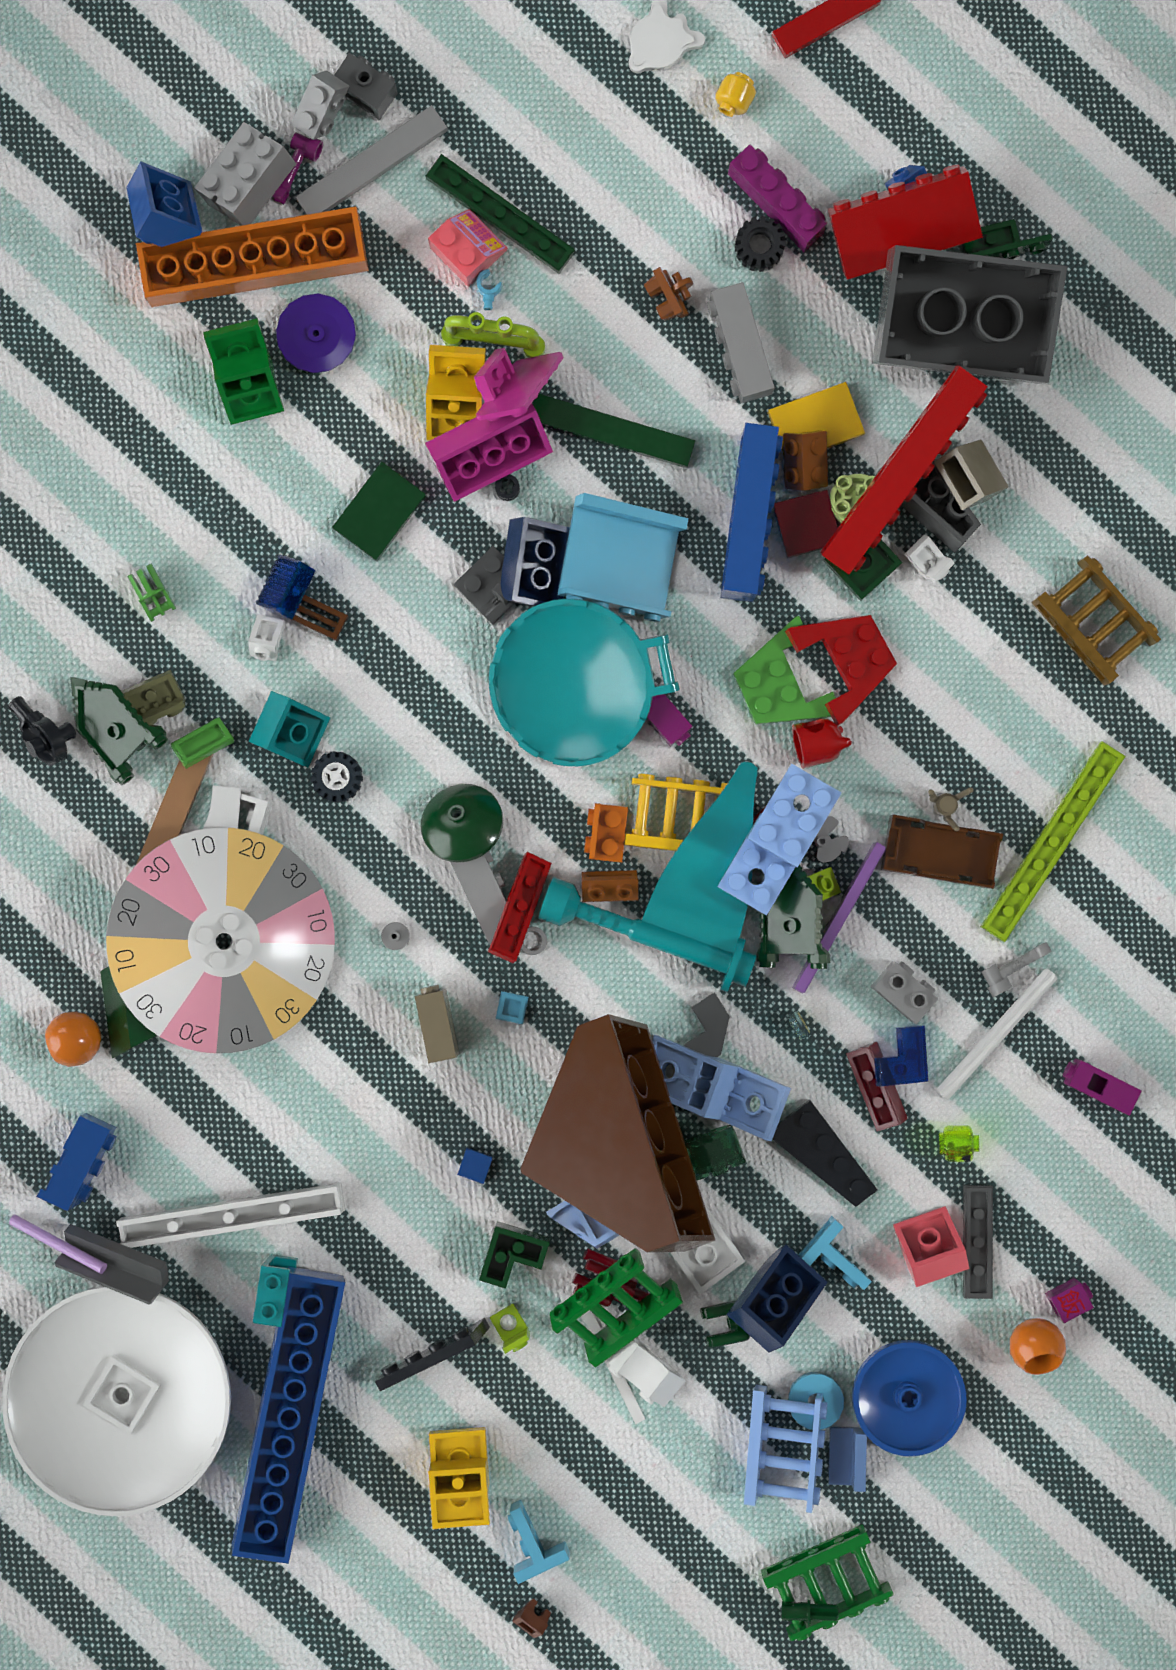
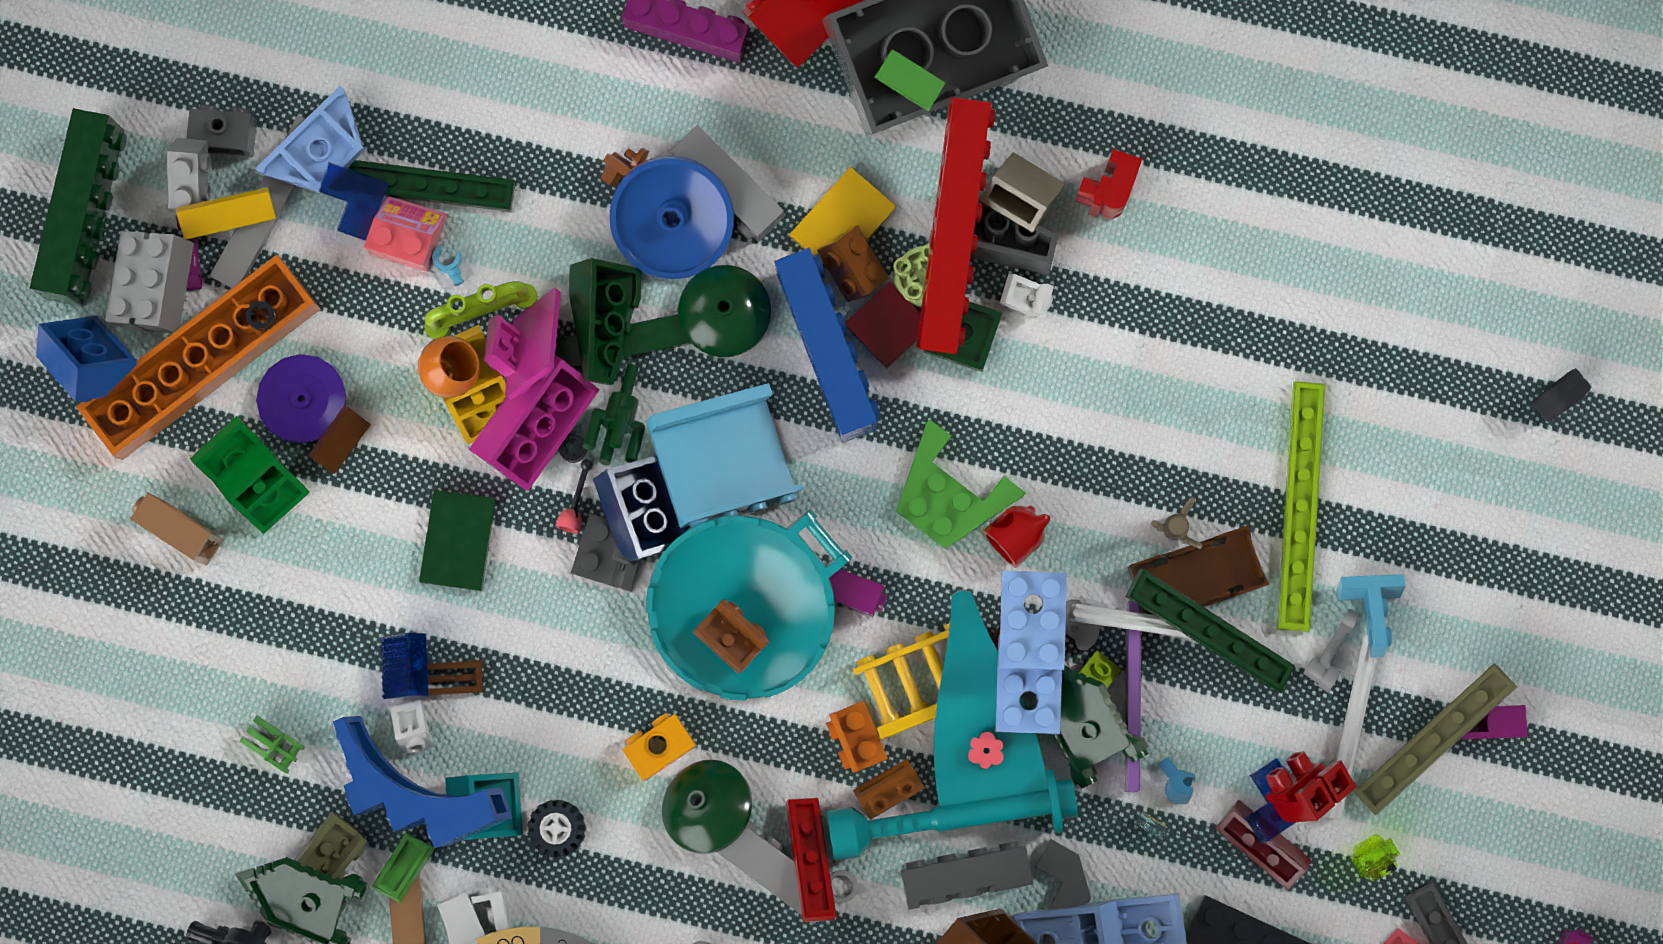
camera: 25 degrees left, 5 degrees down
(164, 382) = (176, 528): none -> medium nougat window
(220, 85) = (78, 208): none -> dark green brick
(230, 695) = (407, 804): none -> blue arch
(317, 238) = (258, 325): none -> black bush
(328, 381) = (339, 439): none -> reddish brown tile
(333, 152) = (225, 213): none -> yellow tile
(433, 139) = (321, 138): none -> light blue wing
(443, 367) = (448, 366): none -> orange helmet
(448, 191) = (360, 192): none -> clear blue tile
(465, 763) = (644, 760): none -> light orange brick
(476, 542) = (570, 519): none -> hinge
(552, 700) = (731, 635): none -> dark orange bracket
(553, 485) = (618, 421): none -> dark green plant
(589, 389) = (602, 308): none -> dark green wedge
(632, 985) = (966, 876): none -> dark grey wedge
(680, 461) = (730, 331): none -> dark green dish
(683, 345) = (671, 217): none -> blue dish
(697, 904) = (994, 755): none -> coral plant
(762, 227) = (693, 60): black tyre -> none
(837, 1004) = (1179, 783): none -> dark azure piece
(857, 654) = (1008, 426): red wing -> none
(889, 872) = (1123, 620): none -> white axle
(904, 991) = (1238, 734): light grey brick -> none
(927, 899) = (1210, 630): none -> dark green tile
(932, 334) = (910, 80): none -> bright green tile
(936, 1064) = (1309, 789): none -> red hips
(1040, 514) = (1112, 193): none -> red hips
(1057, 1078) = (1435, 739): none -> olive tile
(1072, 940) = (1374, 593): none -> medium azure bracket
(1087, 646) = (1199, 286): pearl gold fence -> none

